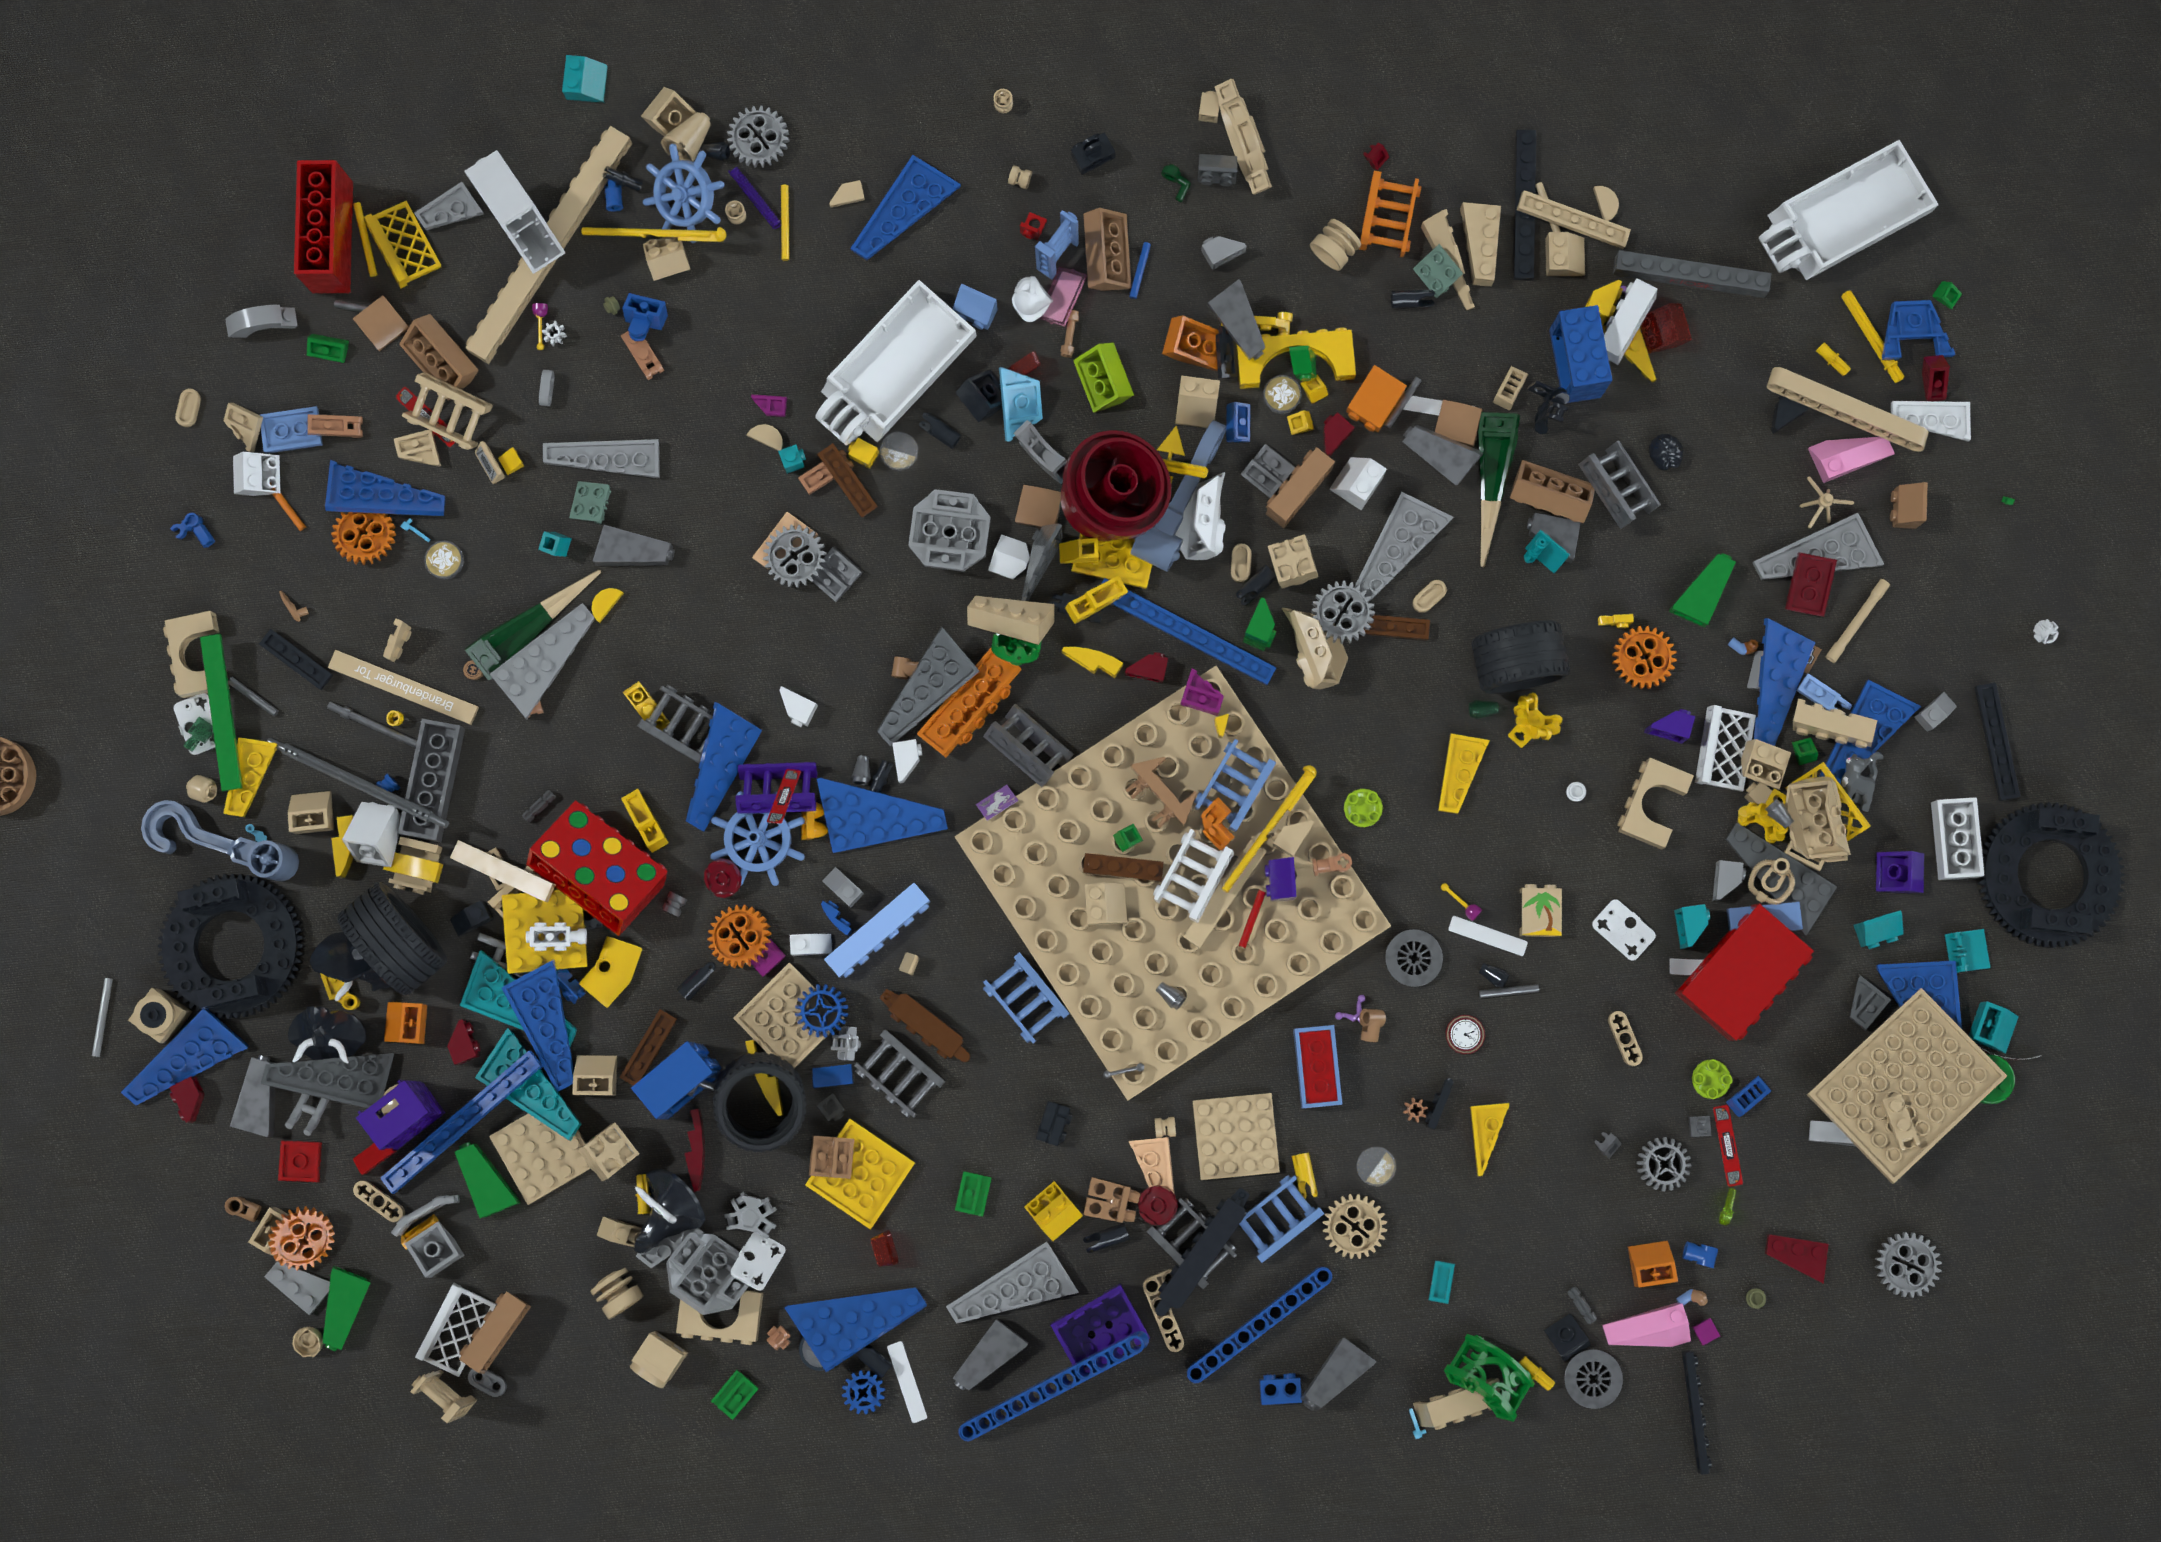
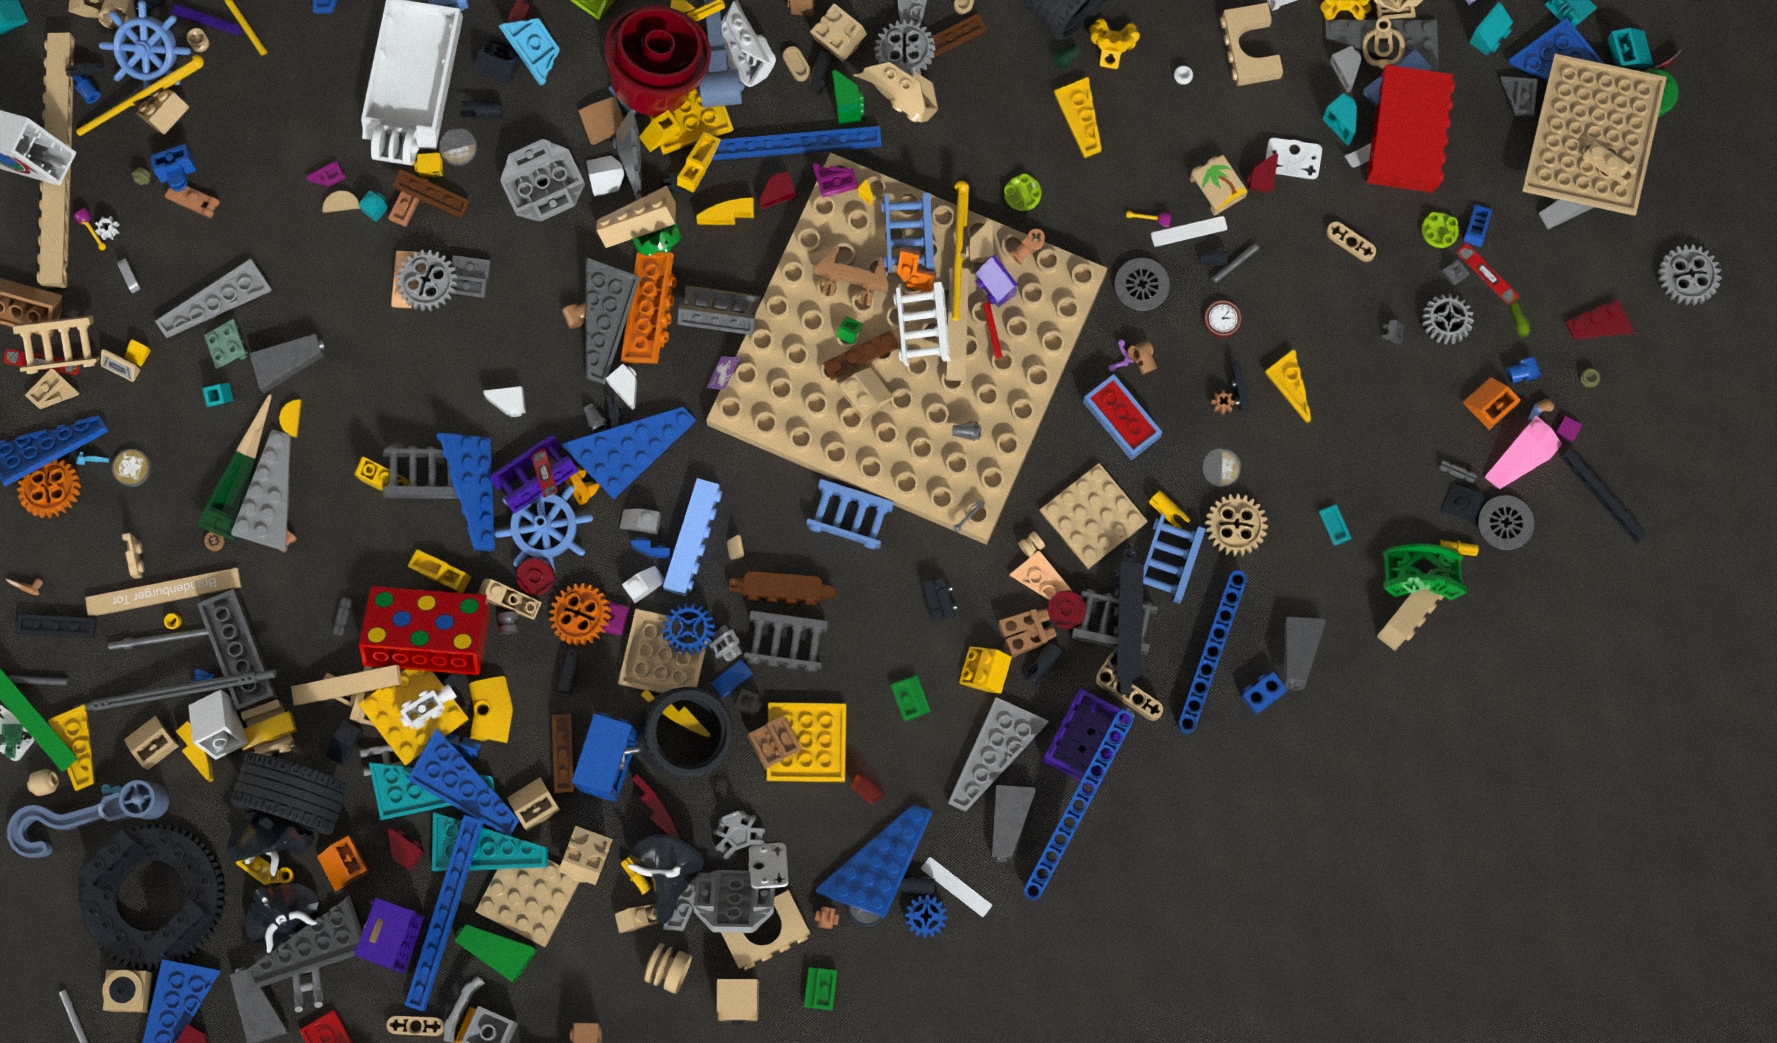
camera: 35 degrees left, 5 degrees down
(371, 1158) = (387, 990): red slope -> none
(688, 883) = (509, 598): none -> tan slope
(1041, 451) = (584, 77): light grey arch -> none
(1417, 1433) = (1396, 656): medium azure piece -> none
(1586, 929) = (1263, 175): none -> dark red slope

